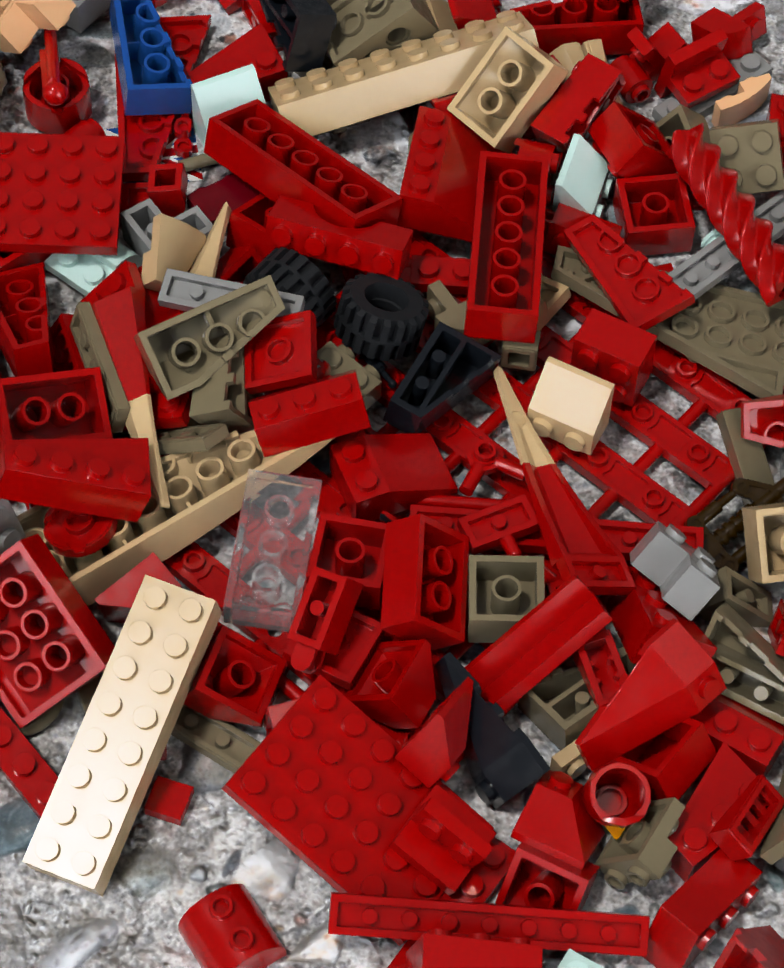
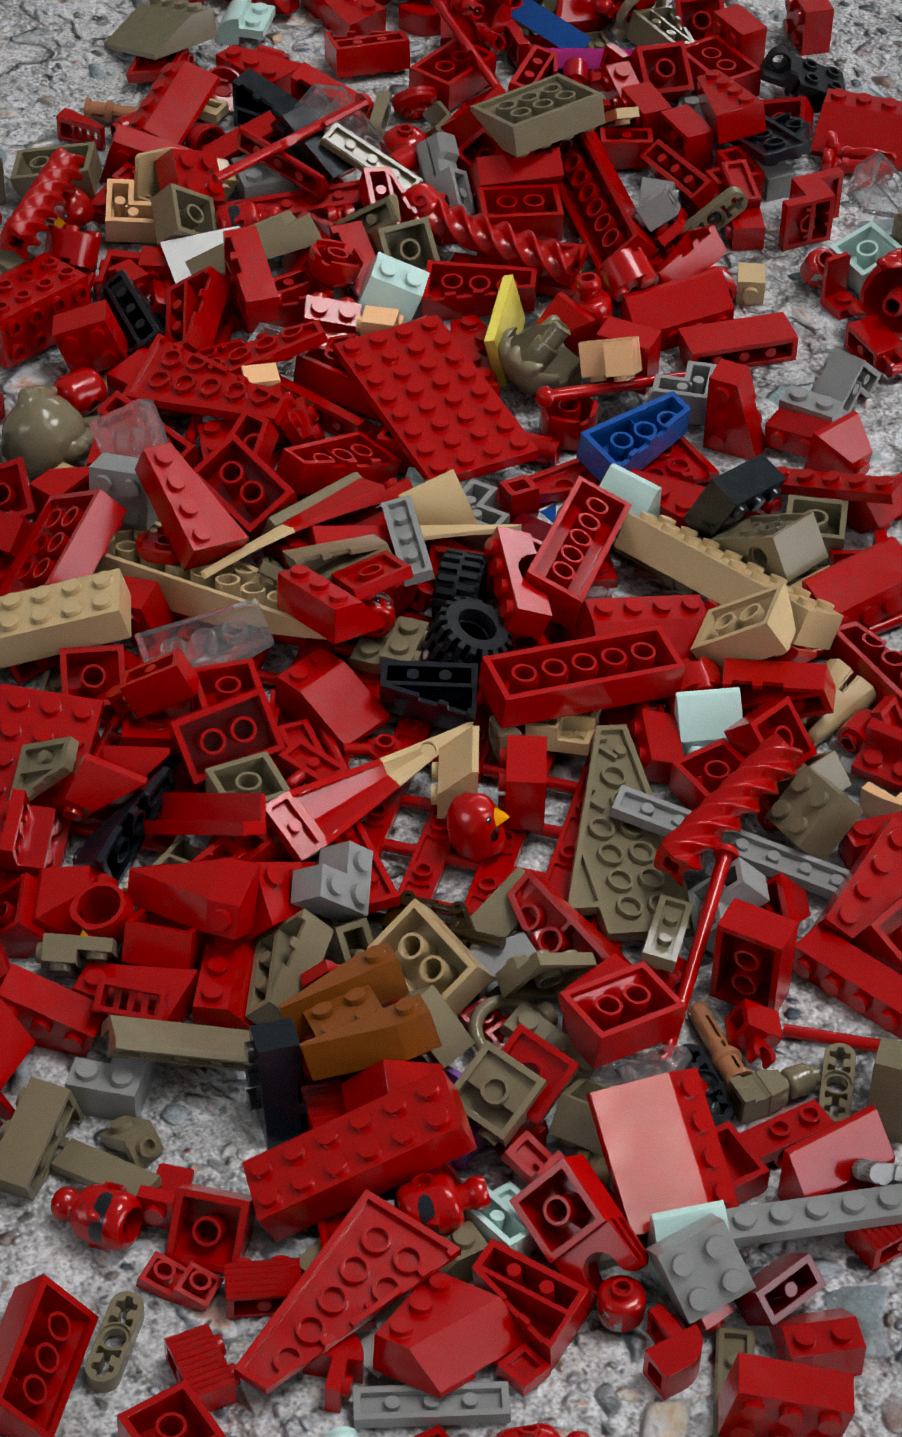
camera: 65 degrees right, 15 degrees down
(200, 341) = (346, 522): dark tan wedge -> none
(392, 770) = (44, 765): none -> dark tan wing
(625, 276) = (612, 763): red wing -> none
(640, 424) = (470, 825): none -> red piece

